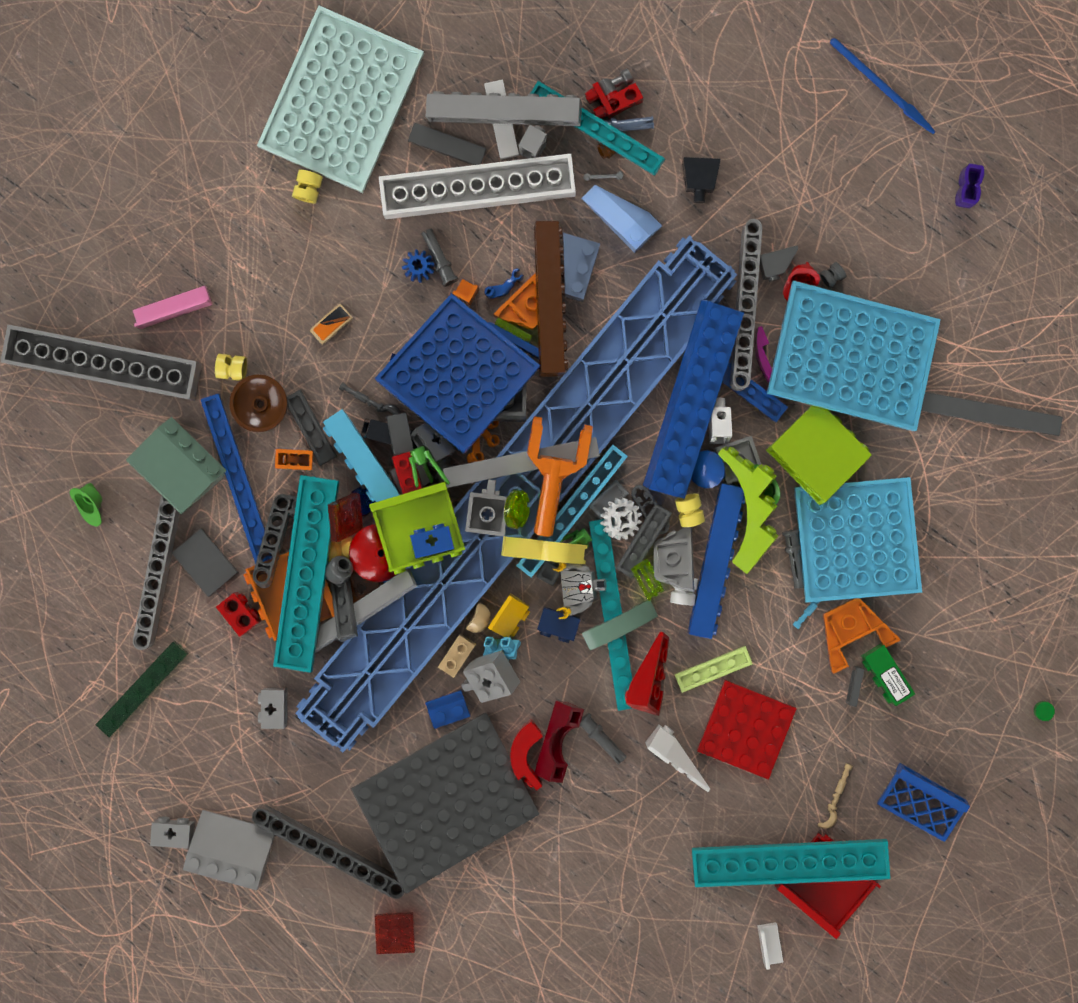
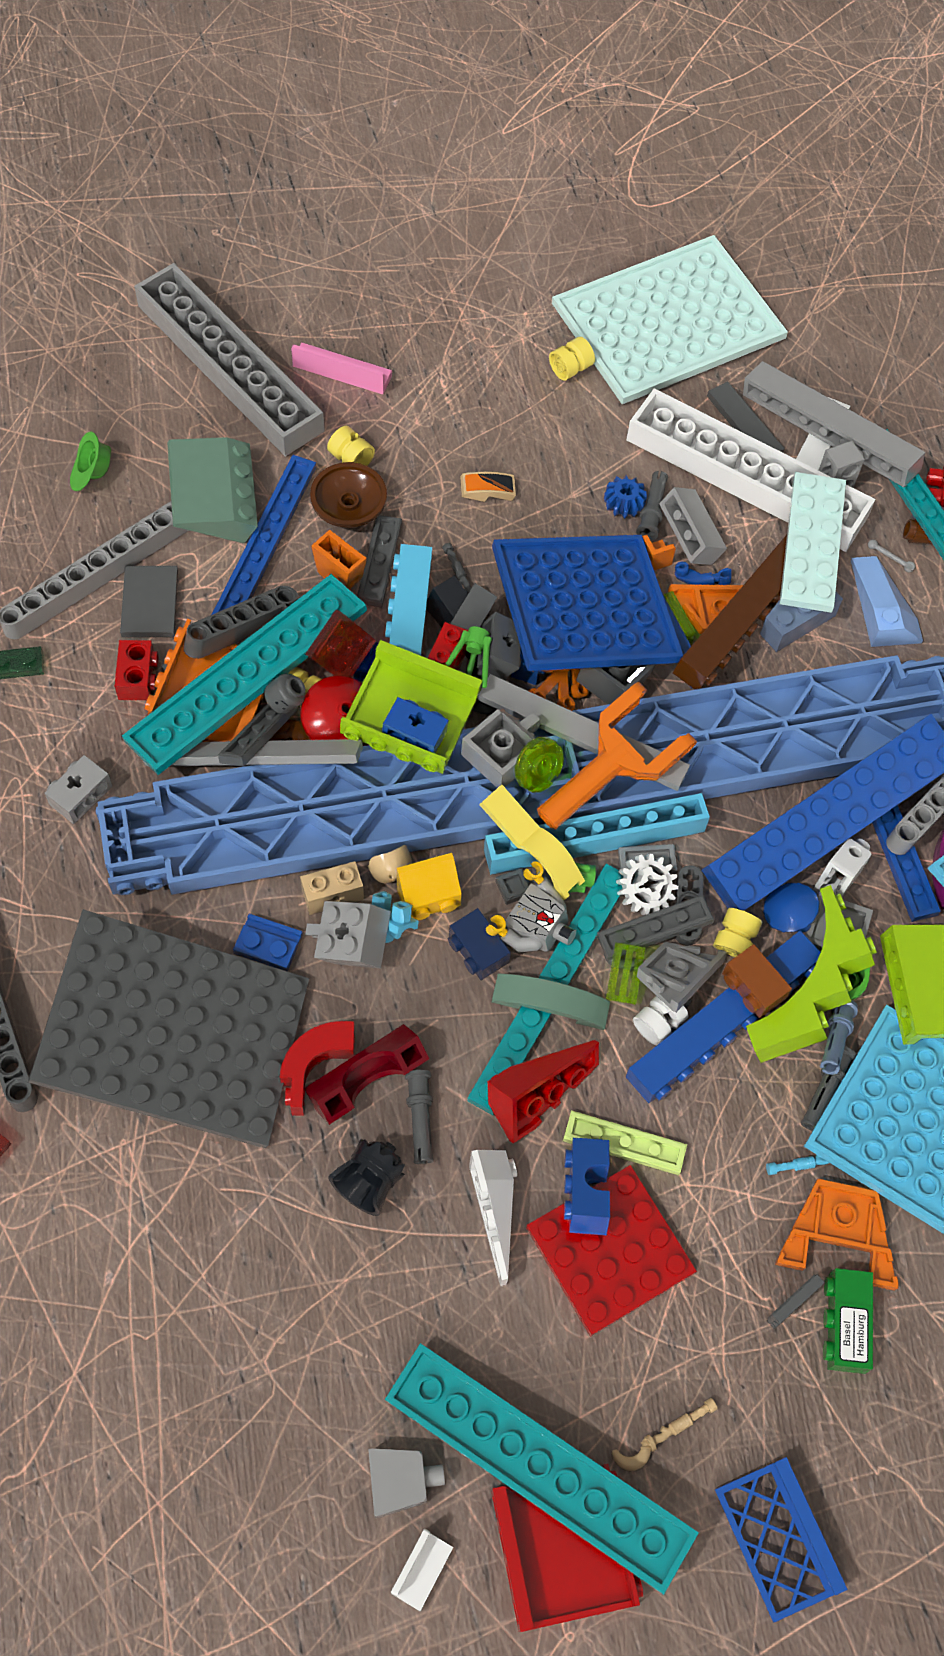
camera: 35 degrees right, 25 degrees down
(474, 257) = (693, 526): none -> light grey brick
(556, 218) = (813, 542): none -> light aqua plate
(603, 790) = (368, 1175): none -> black hat
(704, 698) = (587, 1207): none -> blue arch
(721, 536) = (756, 981): none -> dark orange brick
(730, 916) = (400, 1480): none -> light grey torso
(780, 521) = (840, 1027): none -> sand blue pin

